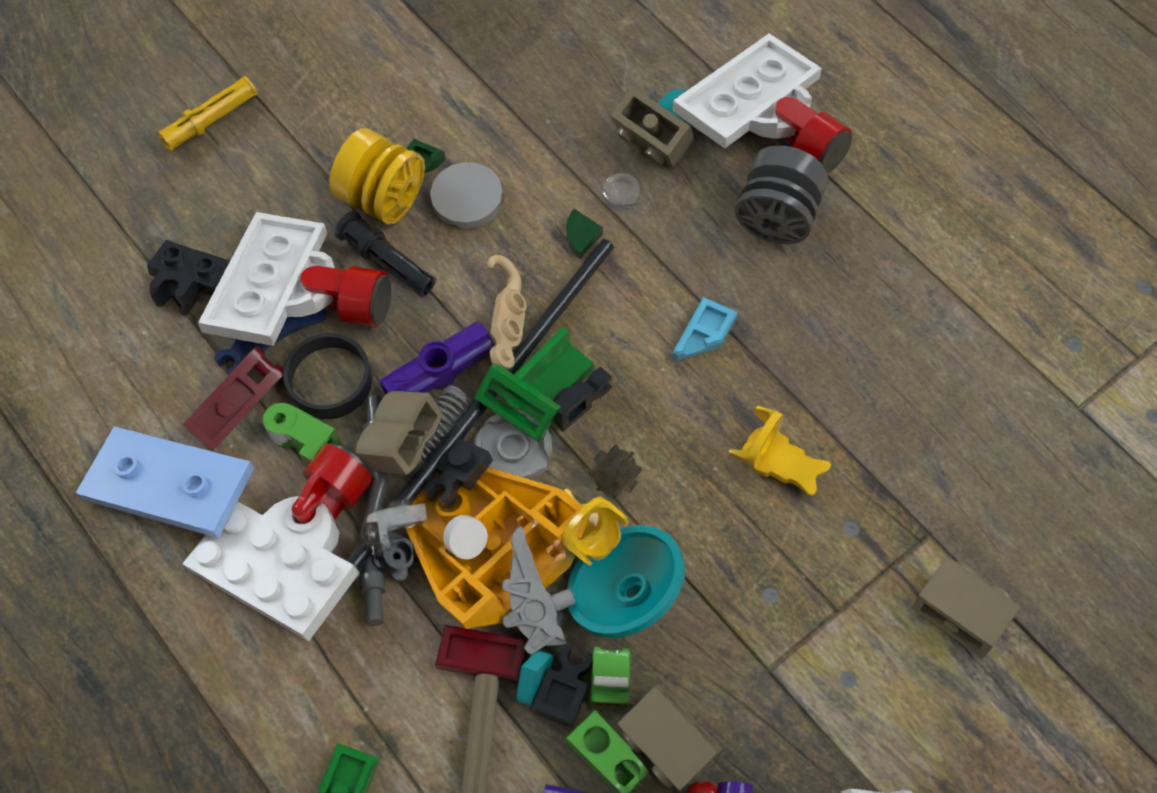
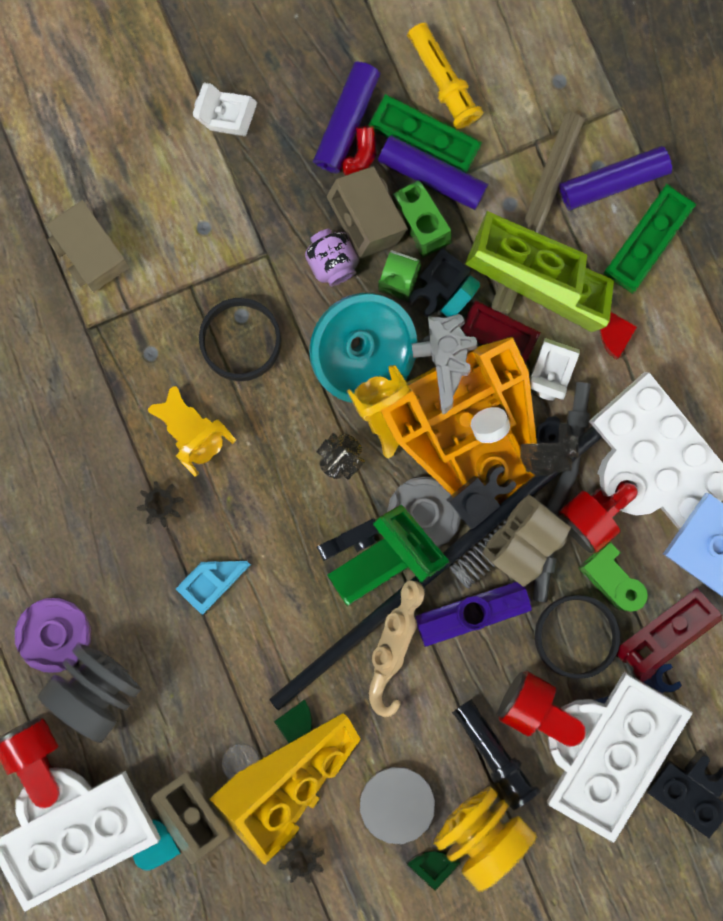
camera: 170 degrees left, 20 degrees up
(350, 691) = (616, 335): none -> red tile
(411, 622) = (553, 370): none -> white bracket
(449, 723) = (542, 271): none -> lime slope
(541, 129) = (295, 868): none -> clear smoke gear
(586, 163) = (274, 792): none -> yellow wedge
(693, 679) = (331, 257): none -> lavender head
(776, 527) = (233, 303): none -> black tyre
(781, 378) = (152, 498): none -> clear smoke gear
(838, 247) = (50, 632): none -> medium lavender tile

